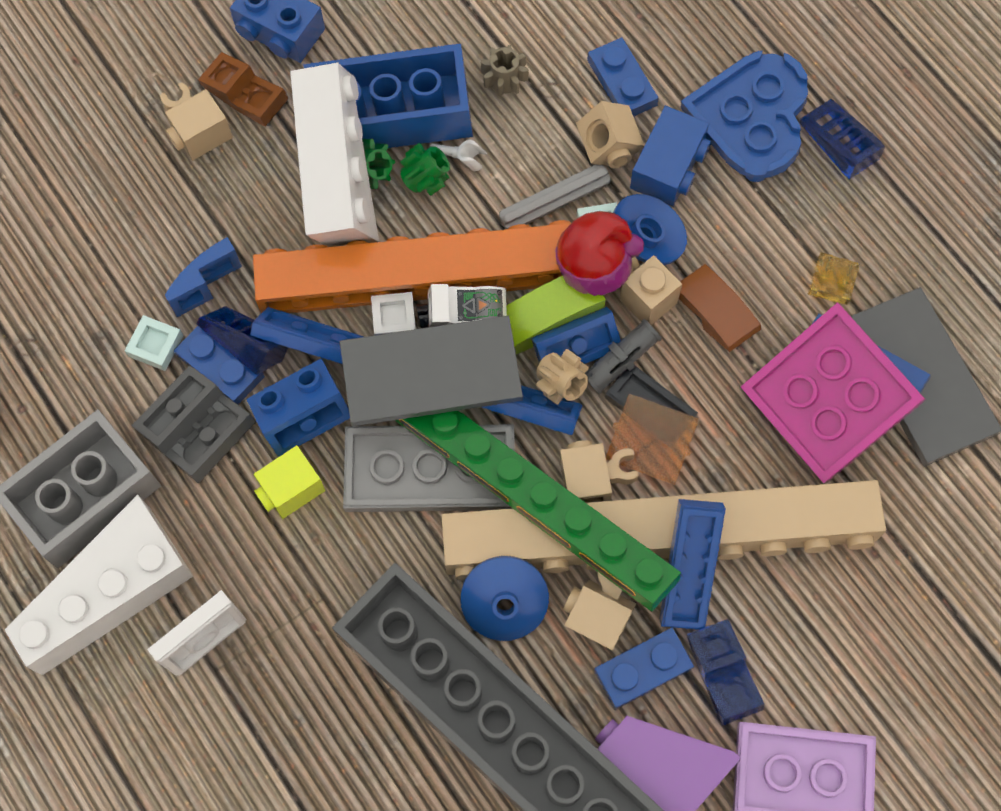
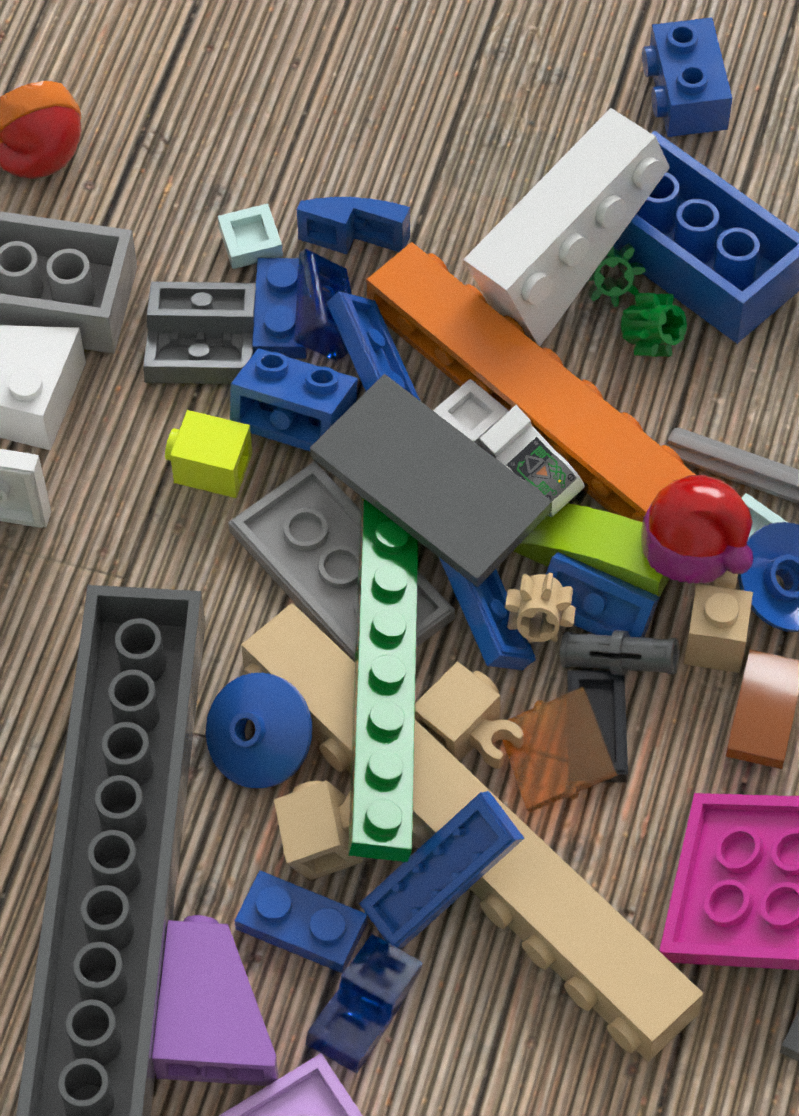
camera: 50 degrees right, 10 degrees down
(195, 122) = (510, 96): tan brick -> none
(243, 90) = (585, 96): dark orange slope -> none
(464, 153) = (710, 349): white hand -> none

